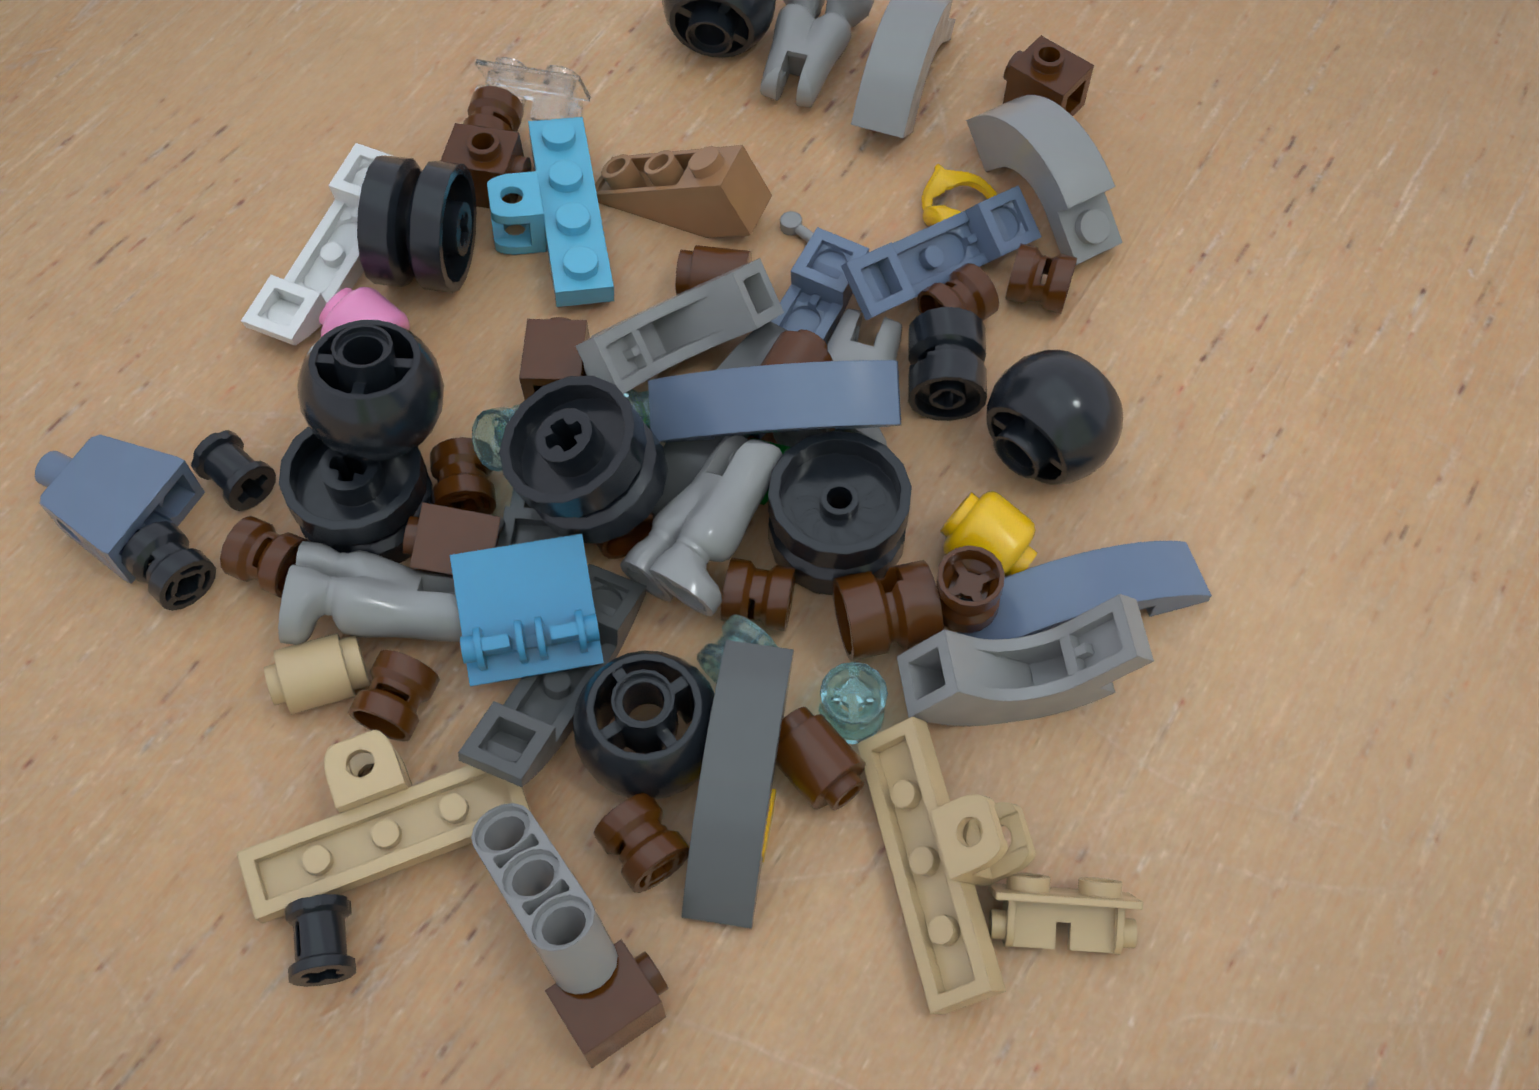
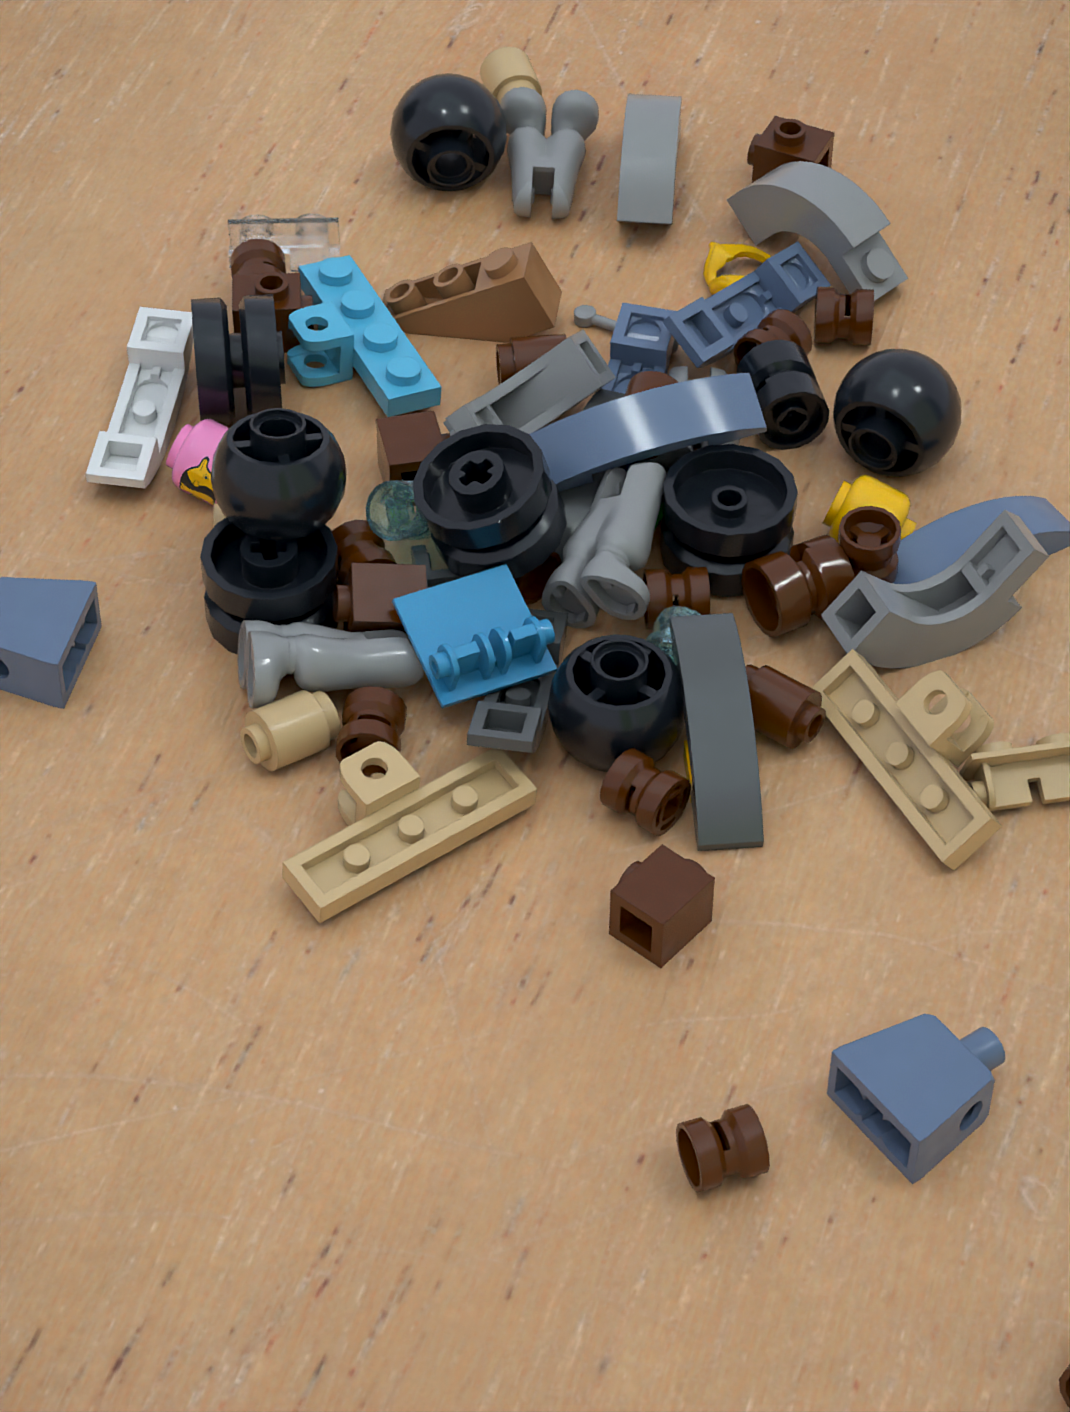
camera: 15 degrees left, 15 degrees down
(175, 572) = (104, 674): black wheel -> none
(240, 477) = (134, 594): black bush -> none
(259, 553) = (200, 652): reddish brown wheel -> none
(320, 940) = (384, 915): black bush -> none
(545, 898) = (583, 827): light grey beam -> none
(854, 687) = (794, 652): clear light blue wheel -> none

